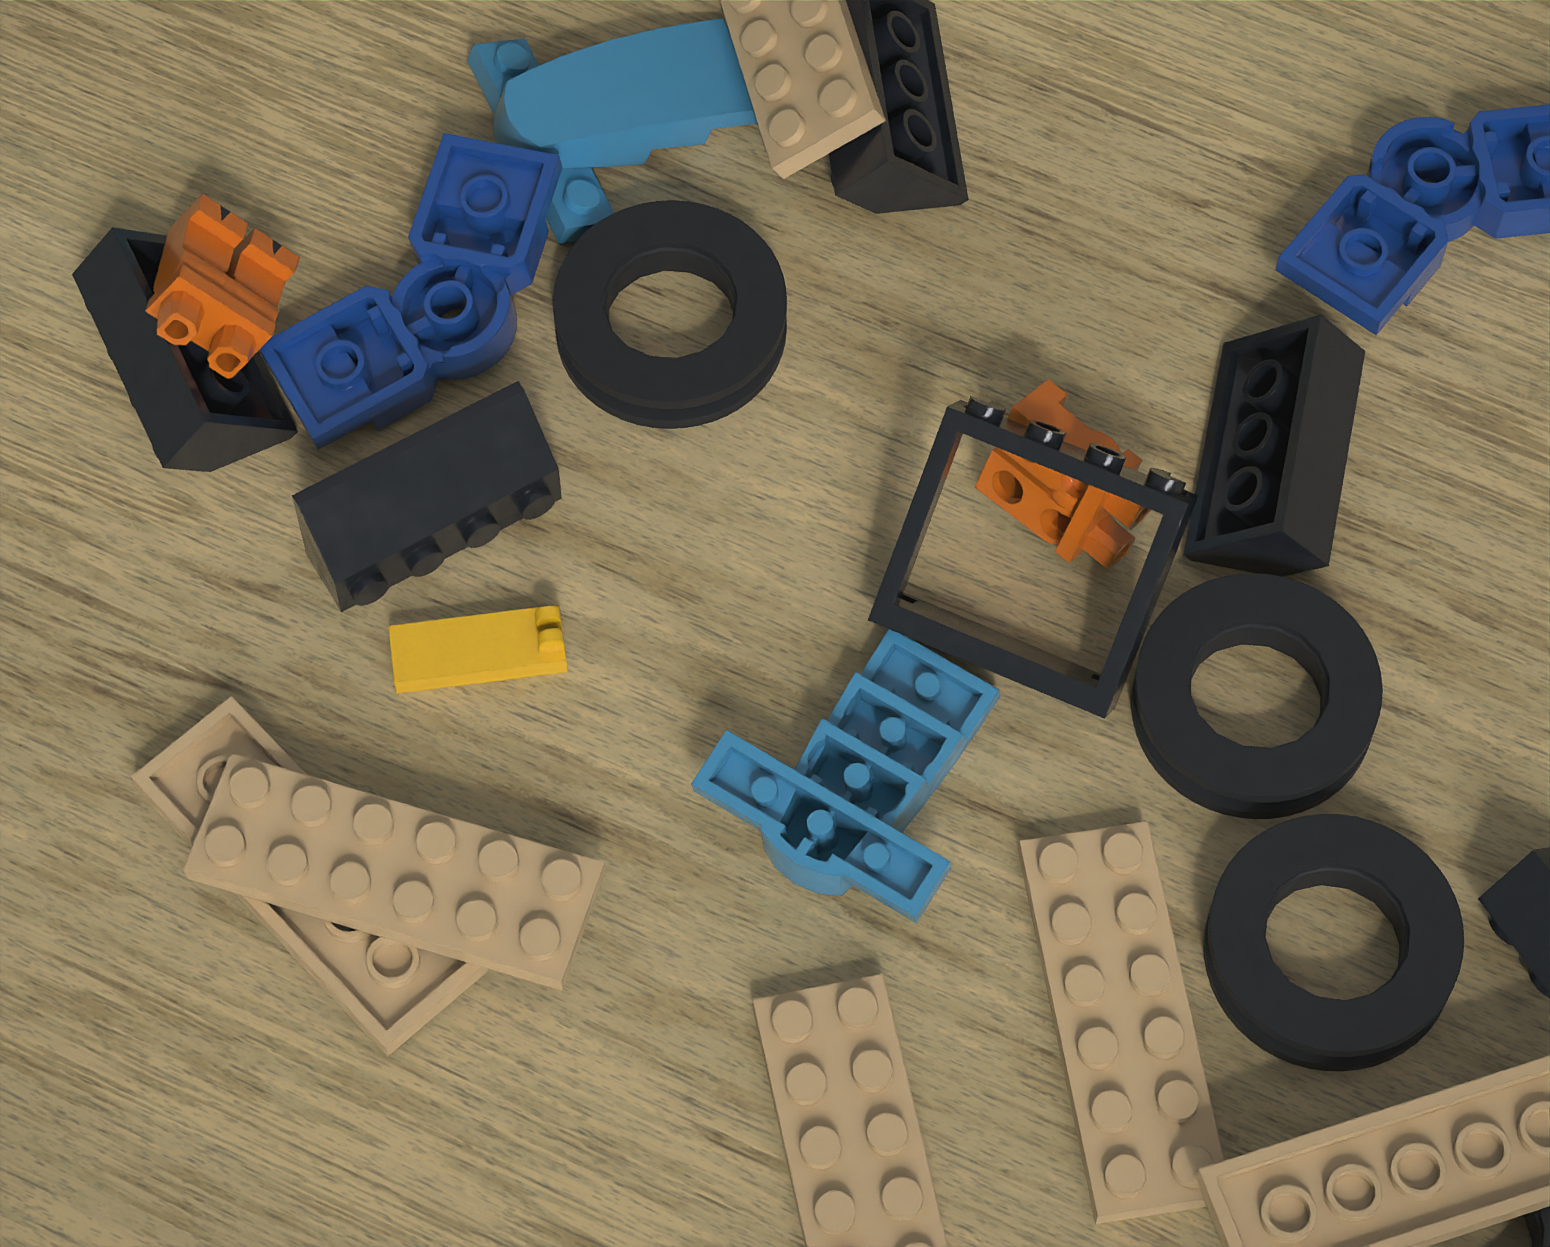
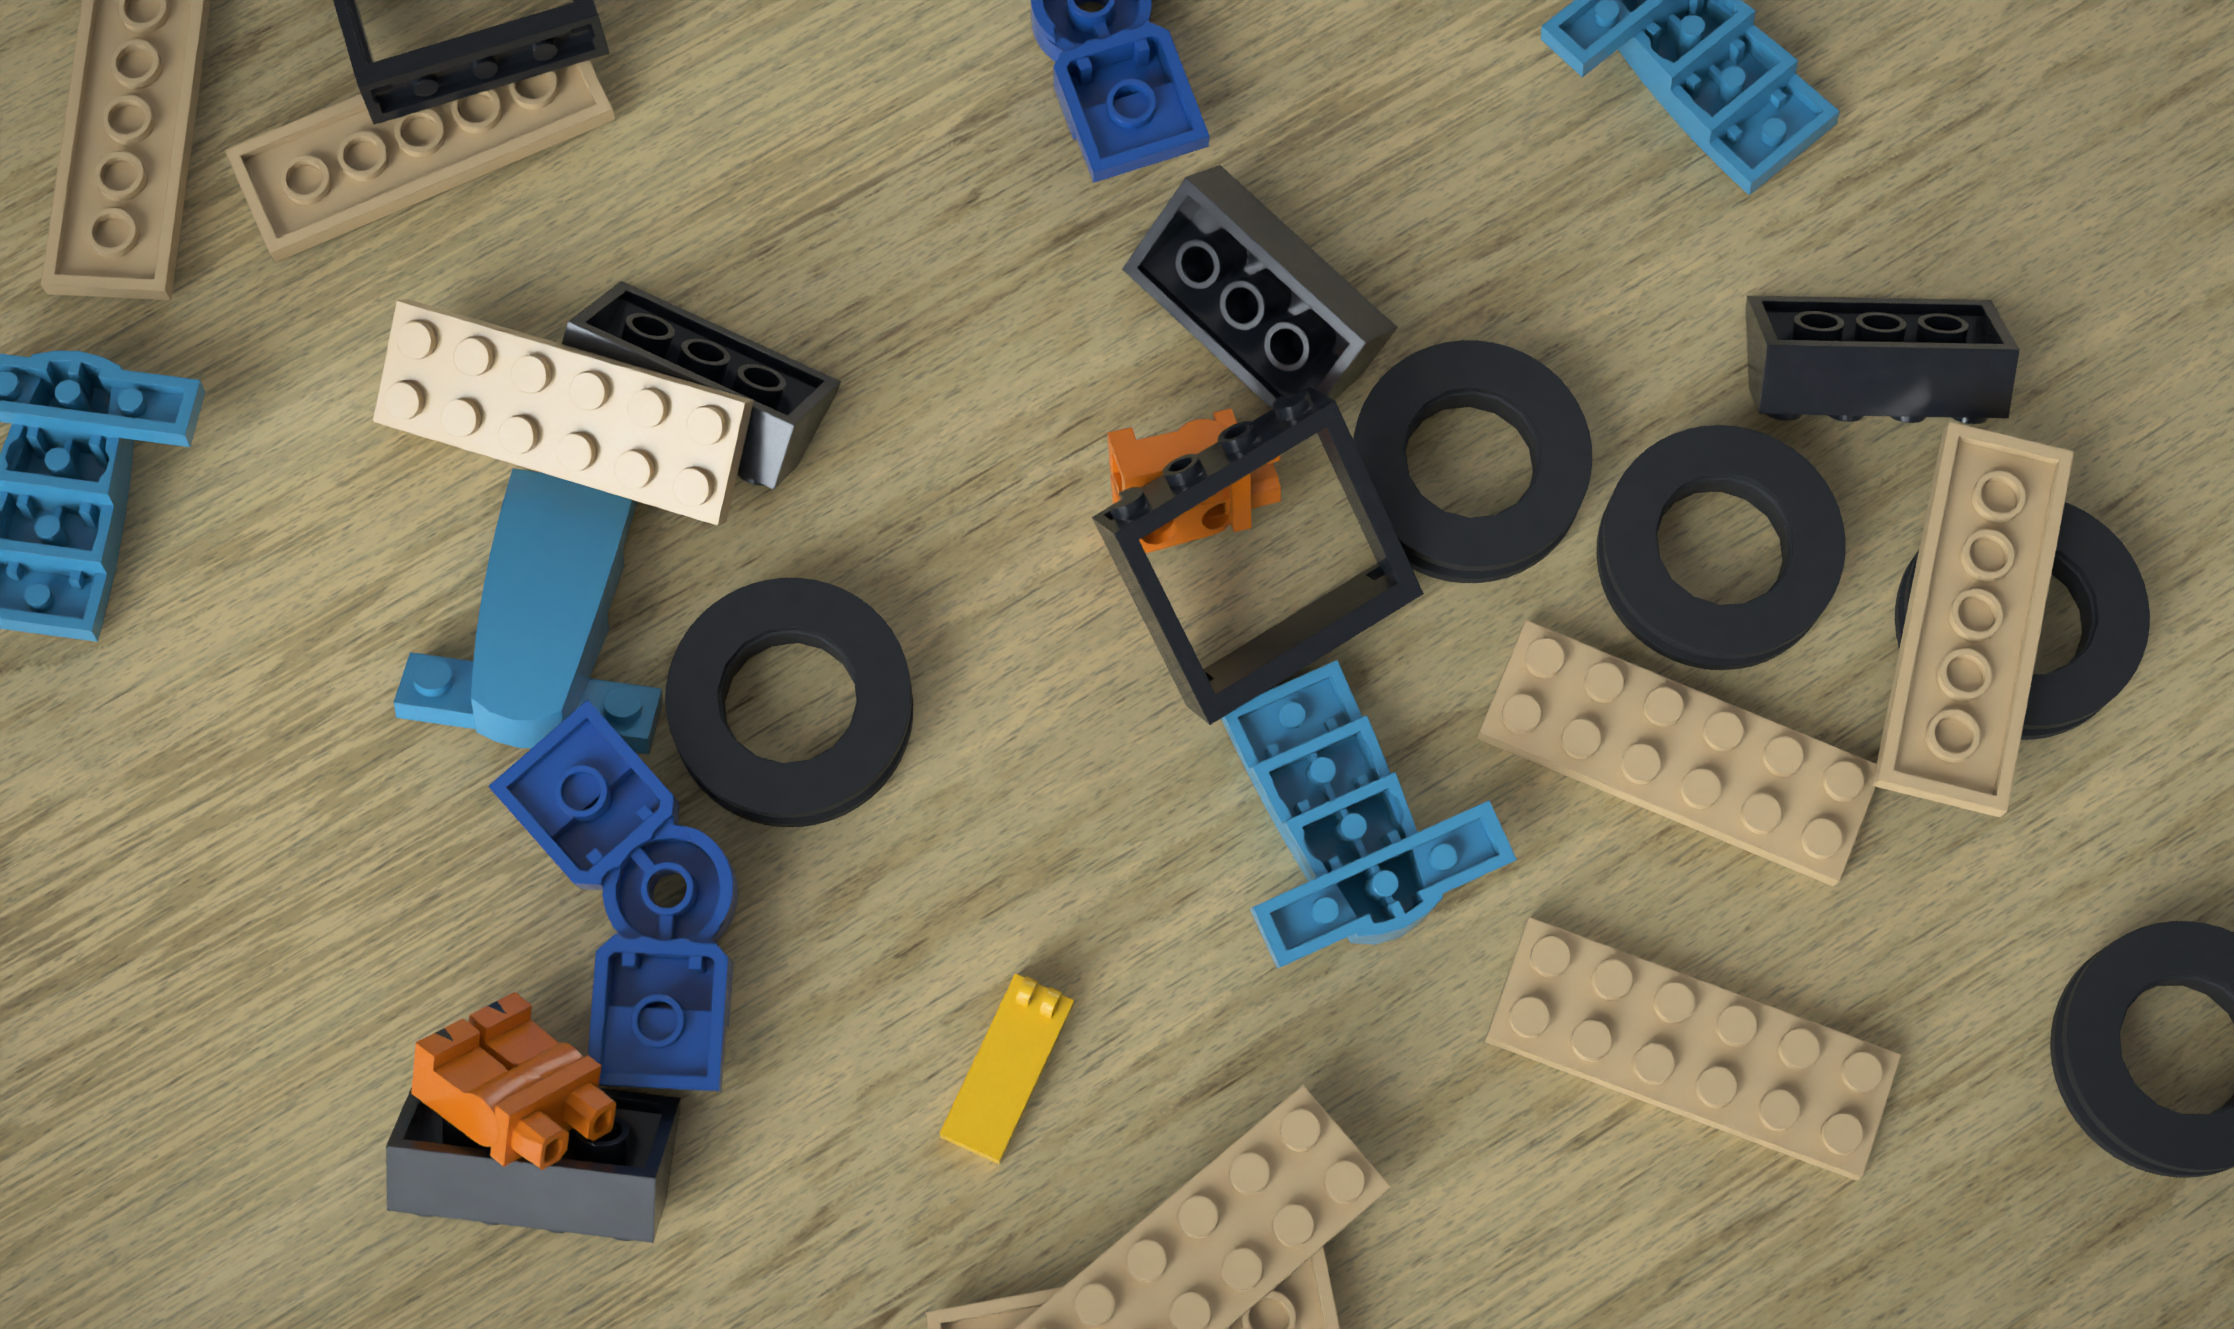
camera: 60 degrees left, 10 degrees up
(428, 497) = (852, 1024): black slope -> none

